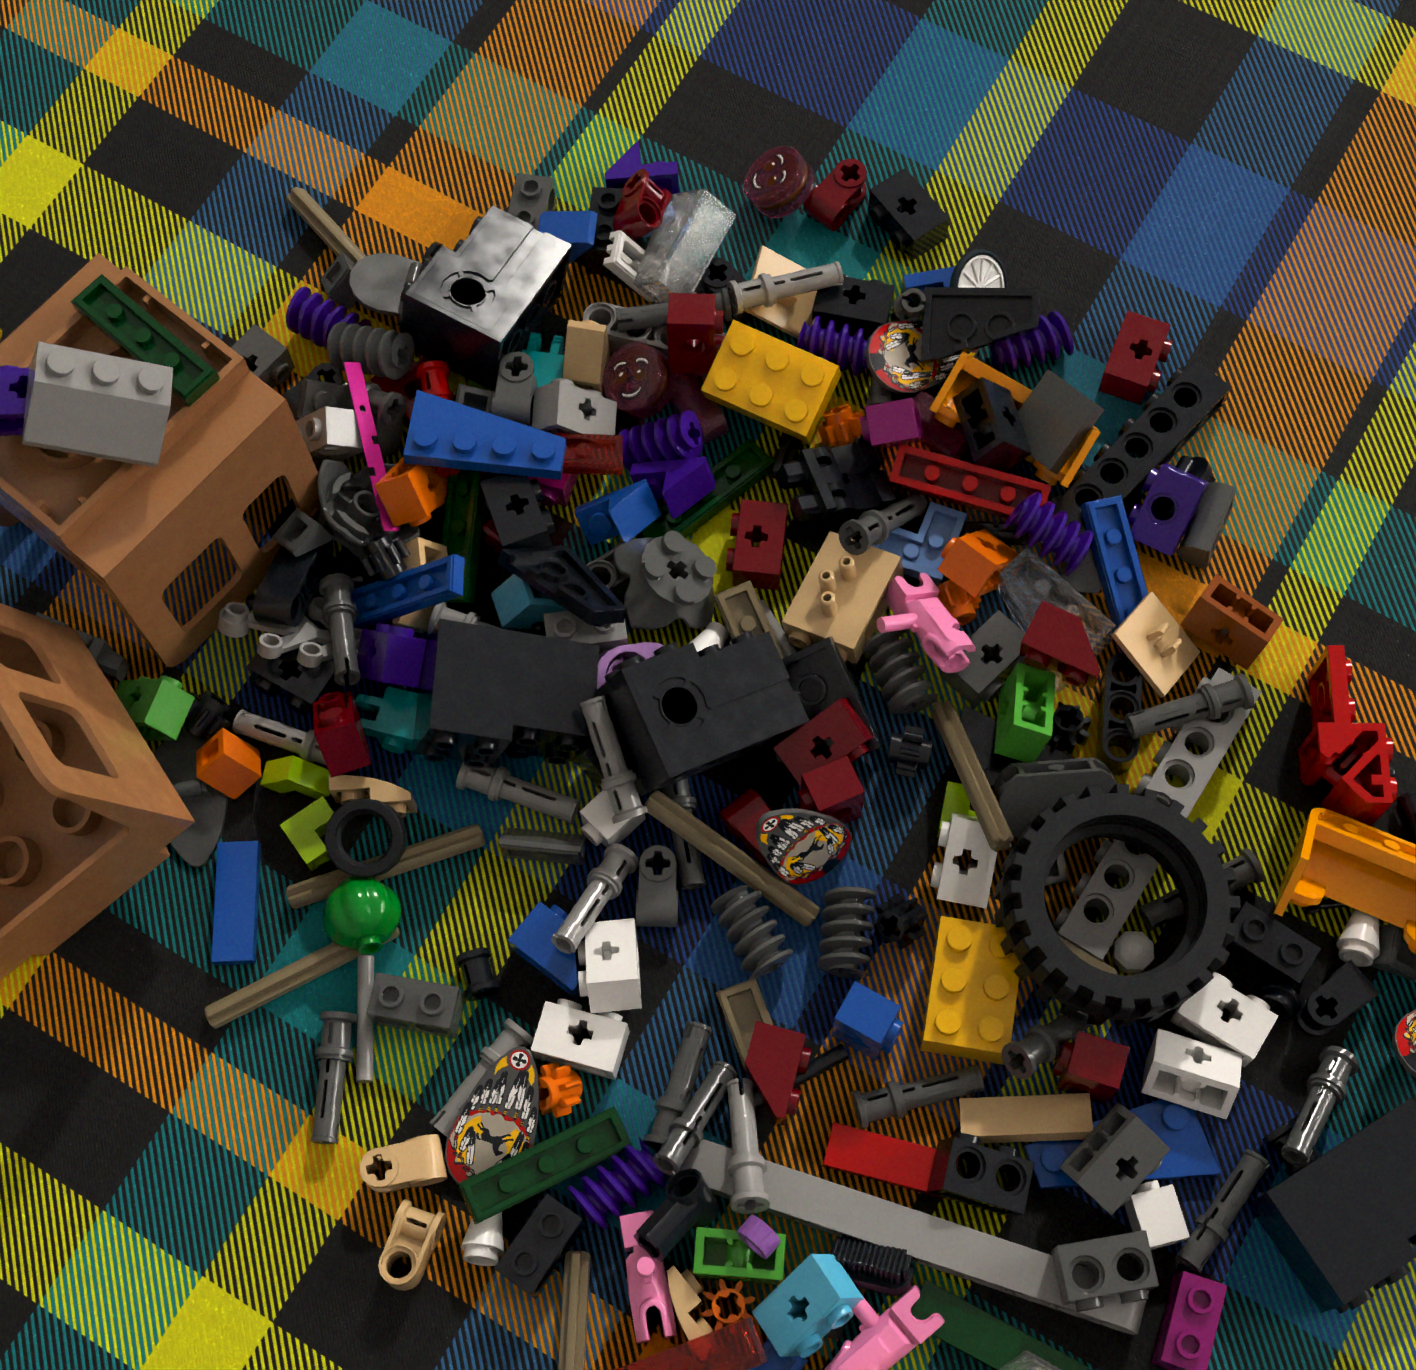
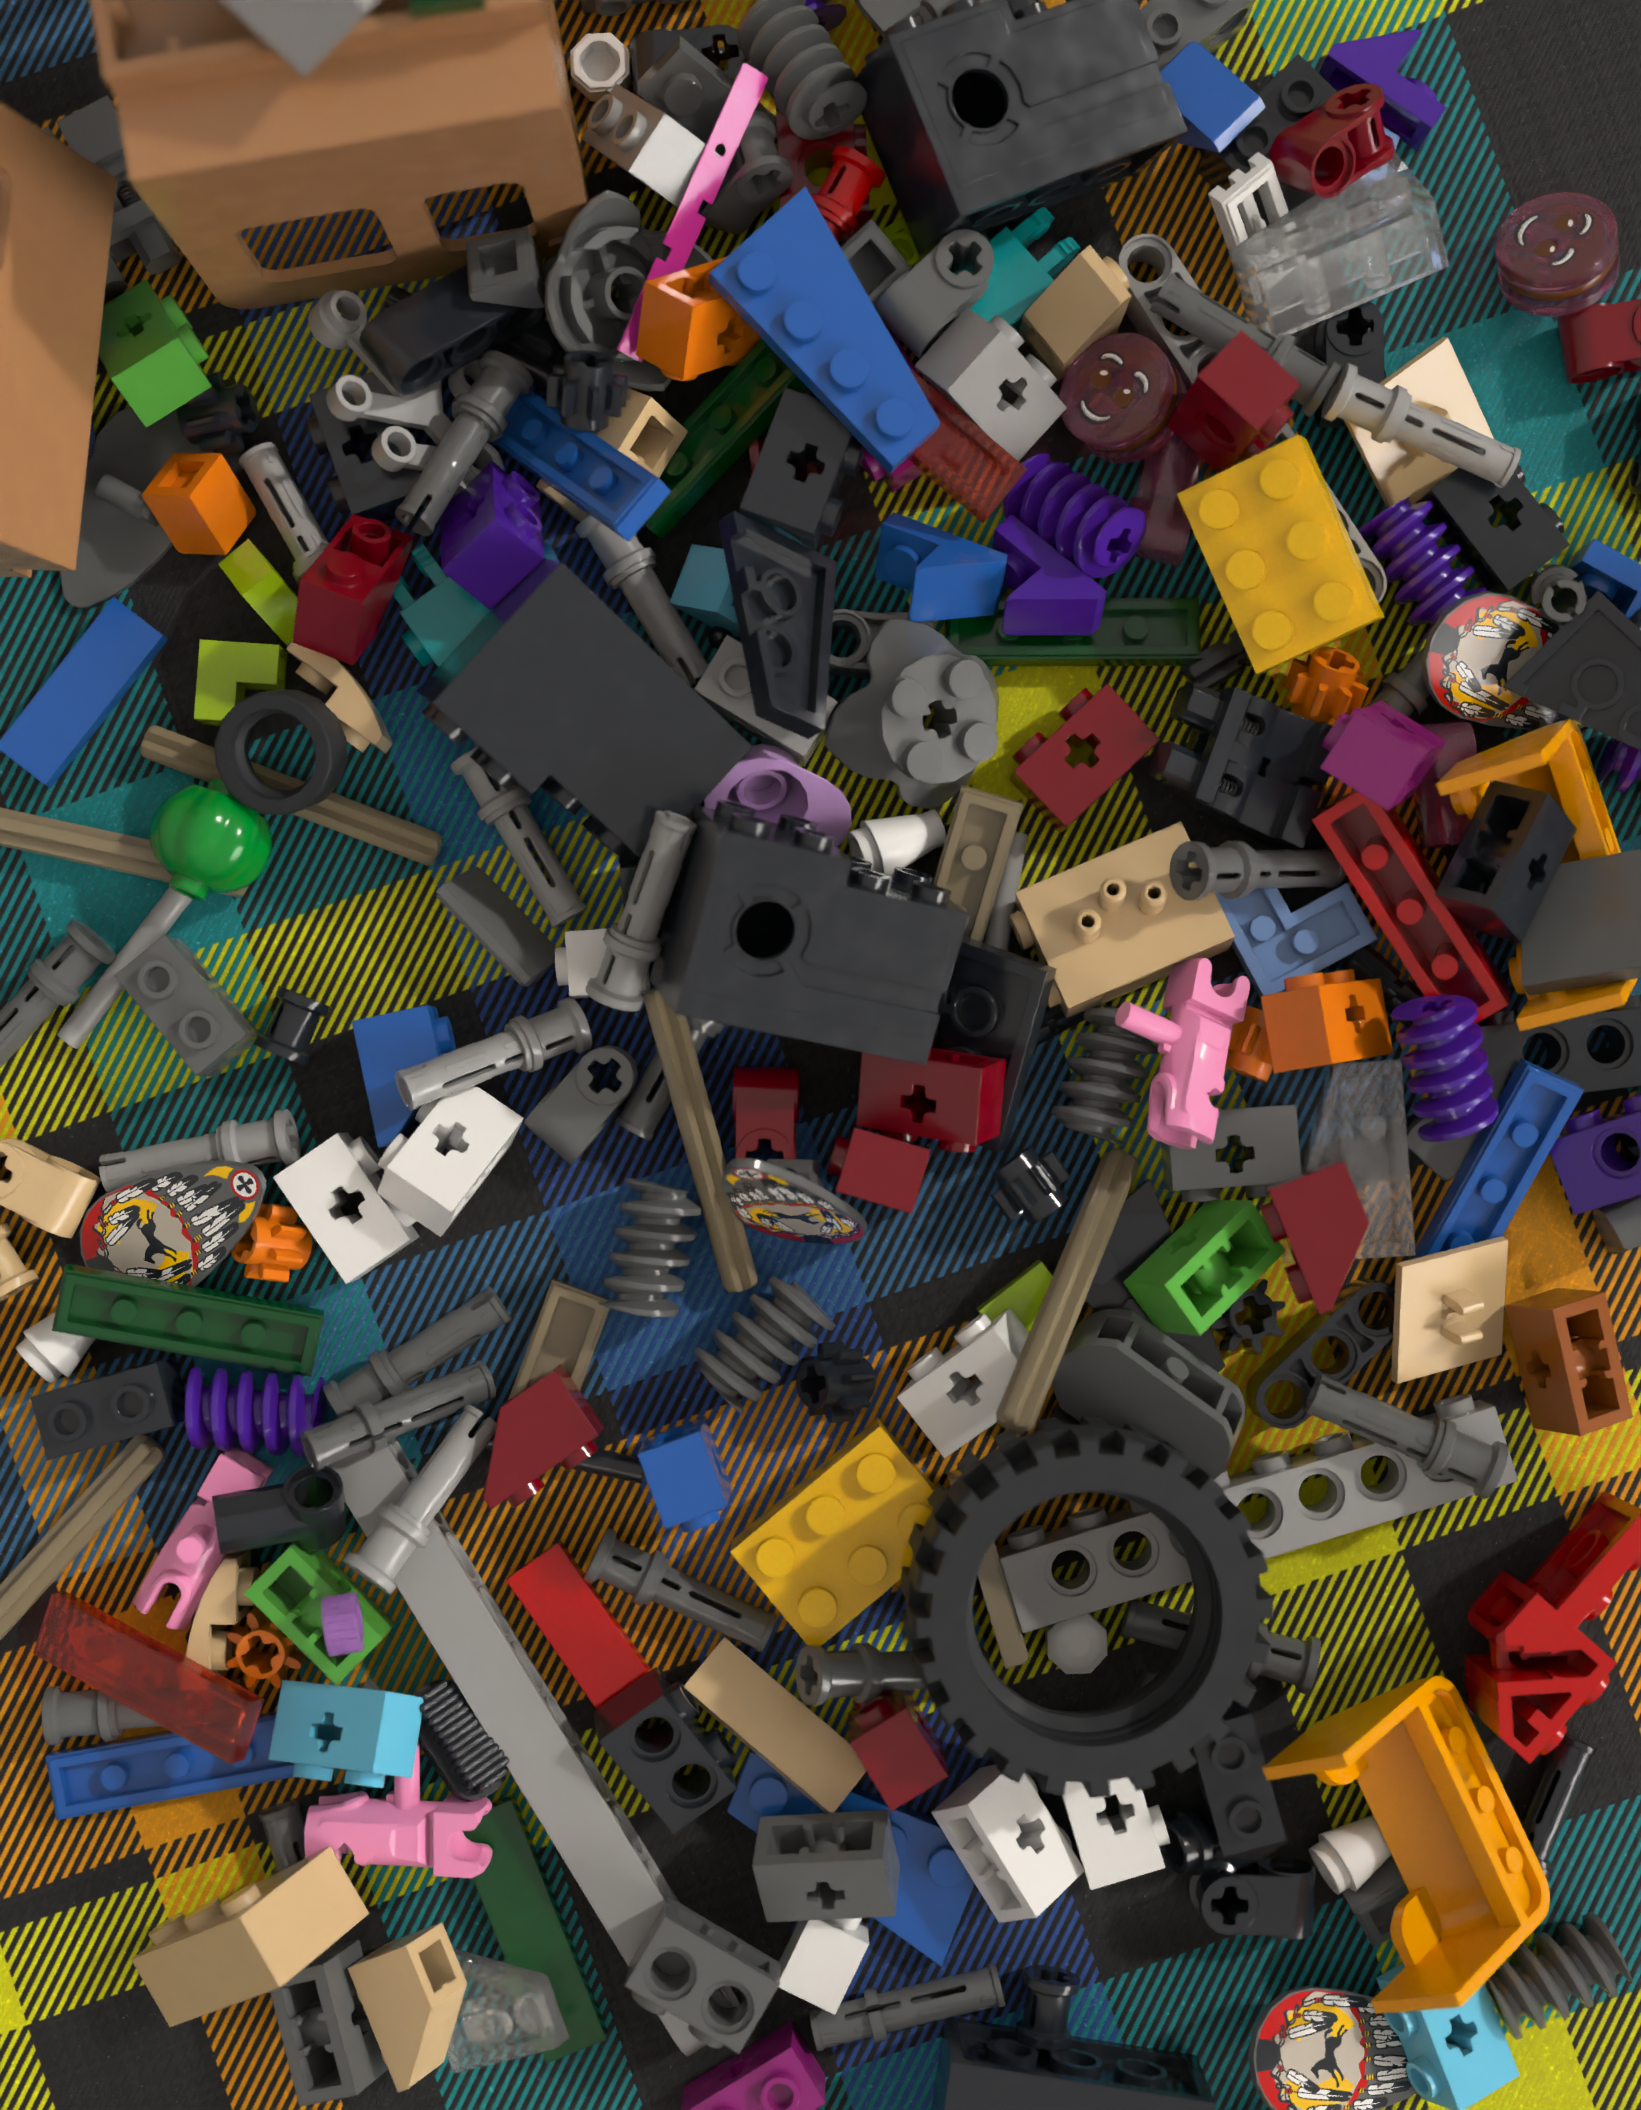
camera: 35 degrees right, 20 degrees up
(1325, 1090) = (1146, 1993): dark grey pin -> none

